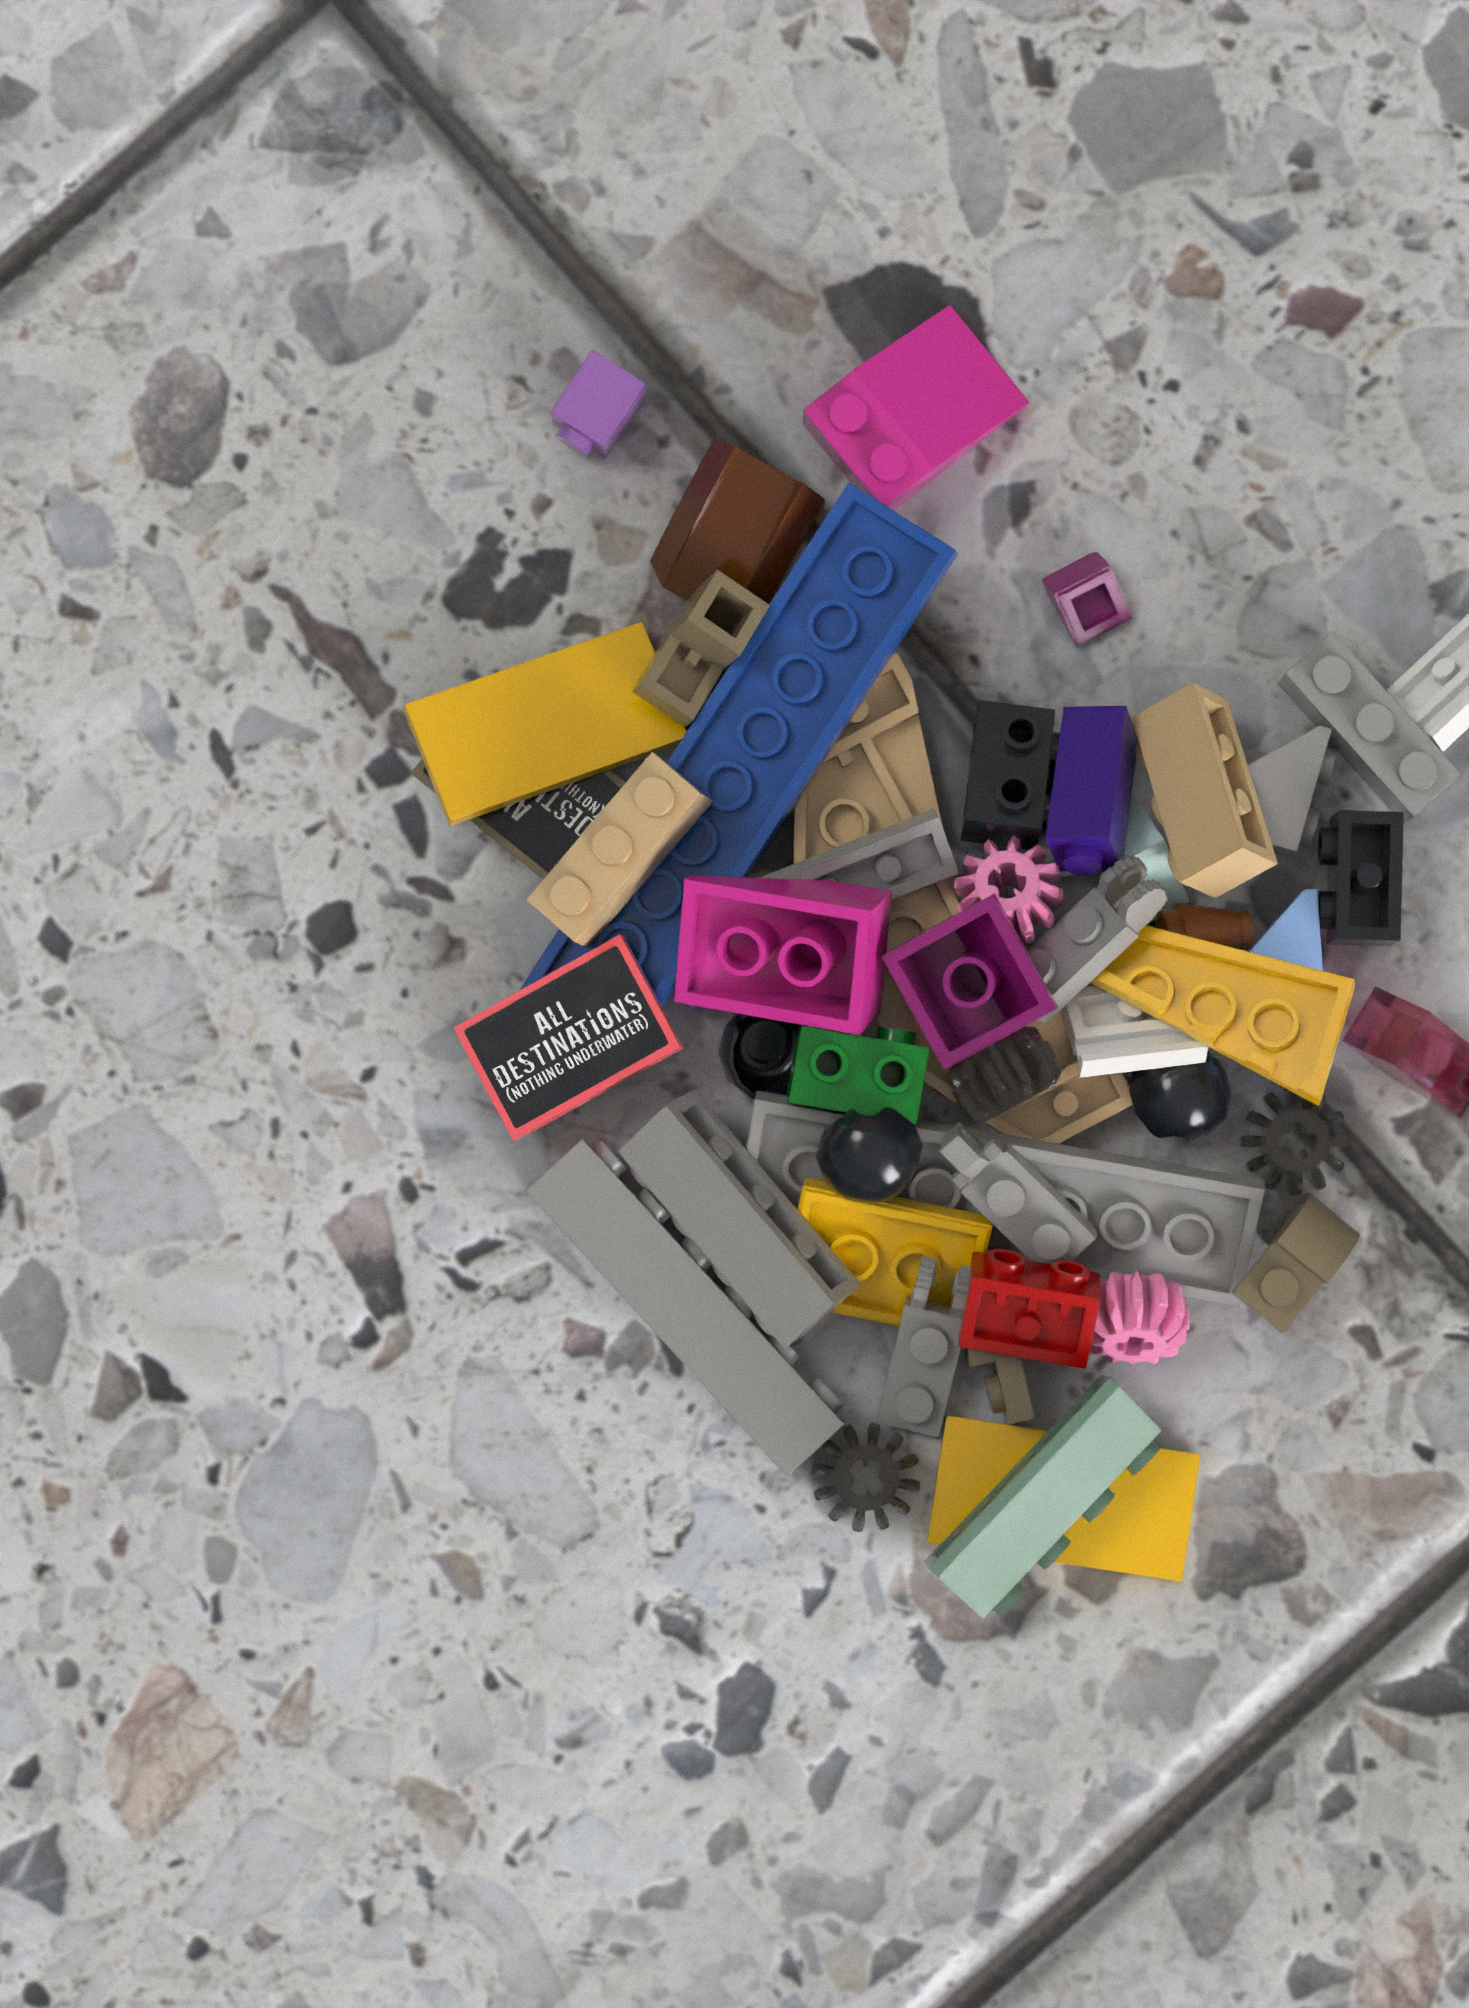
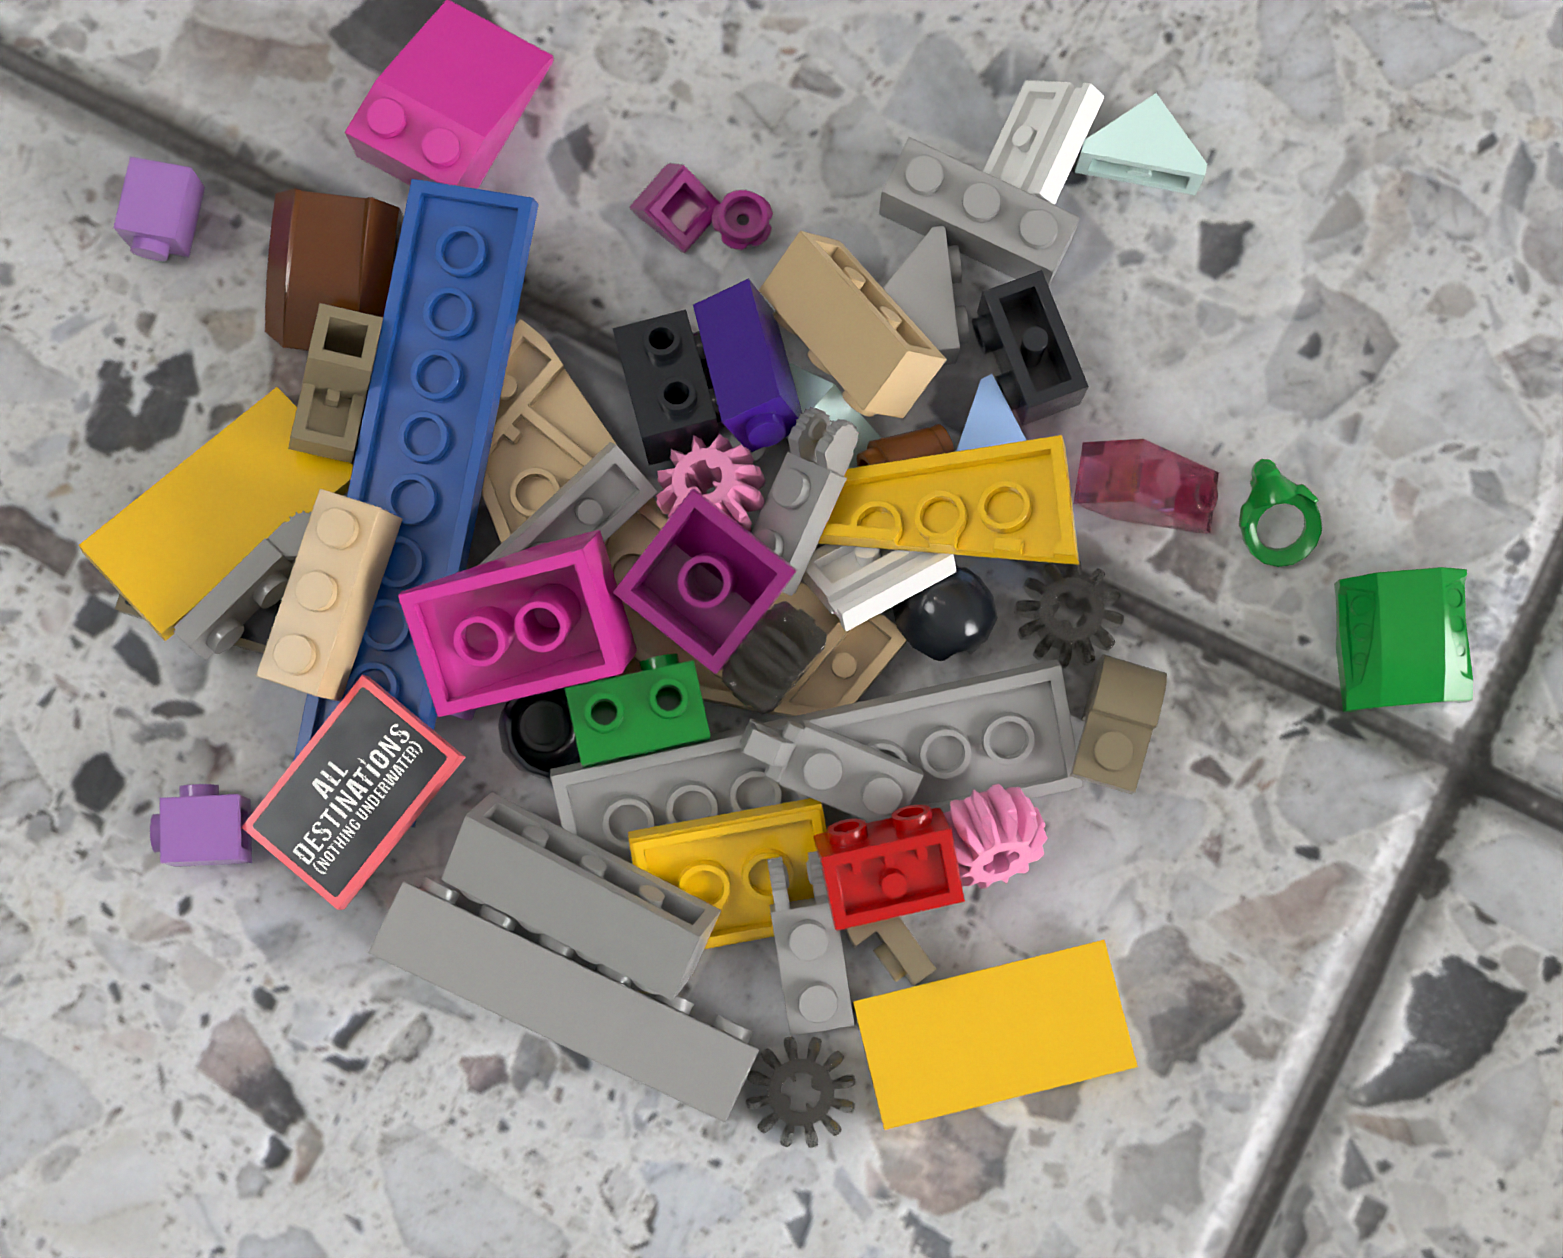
camera: 25 degrees left, 5 degrees down
(415, 1011) = (201, 828): none -> medium lavender brick
(554, 805) = (254, 583): none -> light grey hinge
(869, 1155) = (678, 784): black hair -> none
(1044, 1496) = (975, 1041): slope -> none
(1147, 621) = (748, 204): none -> magenta plate

